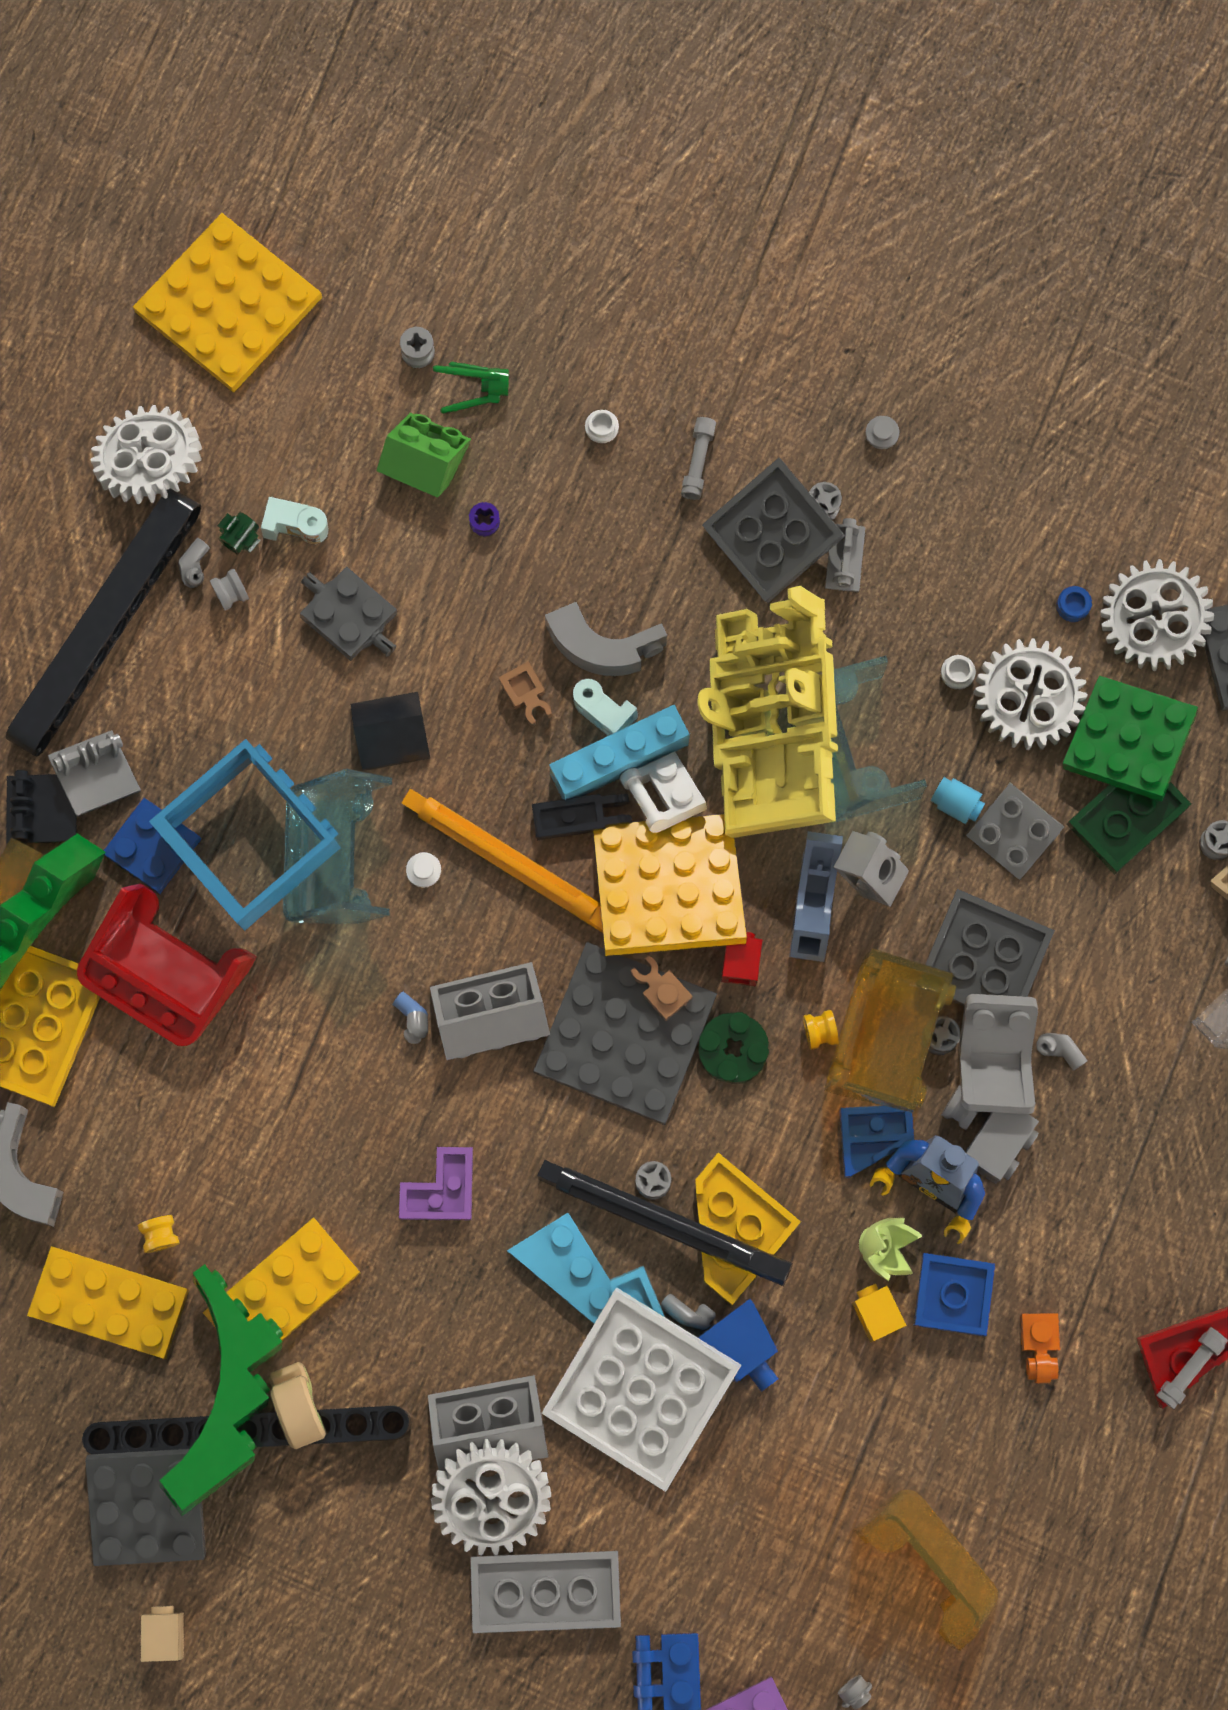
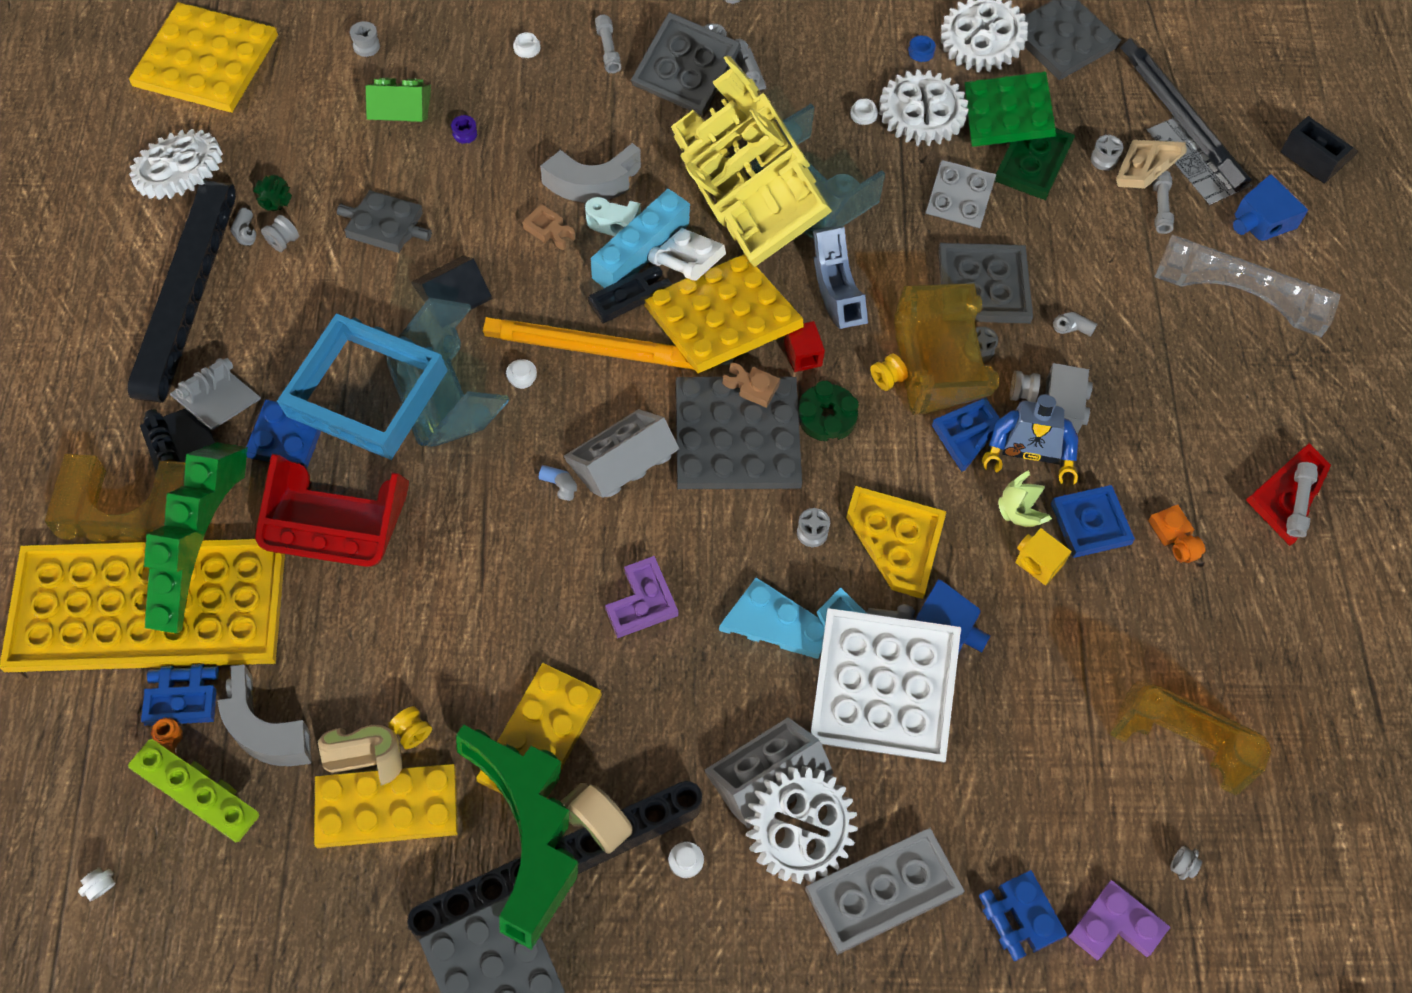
camera: 25 degrees left, 15 degrees down
(104, 1238) = (361, 749): none -> tan animal
(294, 520) = (315, 173): light aqua leg -> none
(370, 1479) = (686, 859): none -> white plate
(493, 381) = (431, 40): green plant -> none
(666, 1223) = (840, 550): black piece -> none
(871, 867) = (871, 245): light grey brick -> none
(958, 800) = (909, 188): medium azure brick -> none
(997, 1053) = (1027, 332): light grey piece -> none

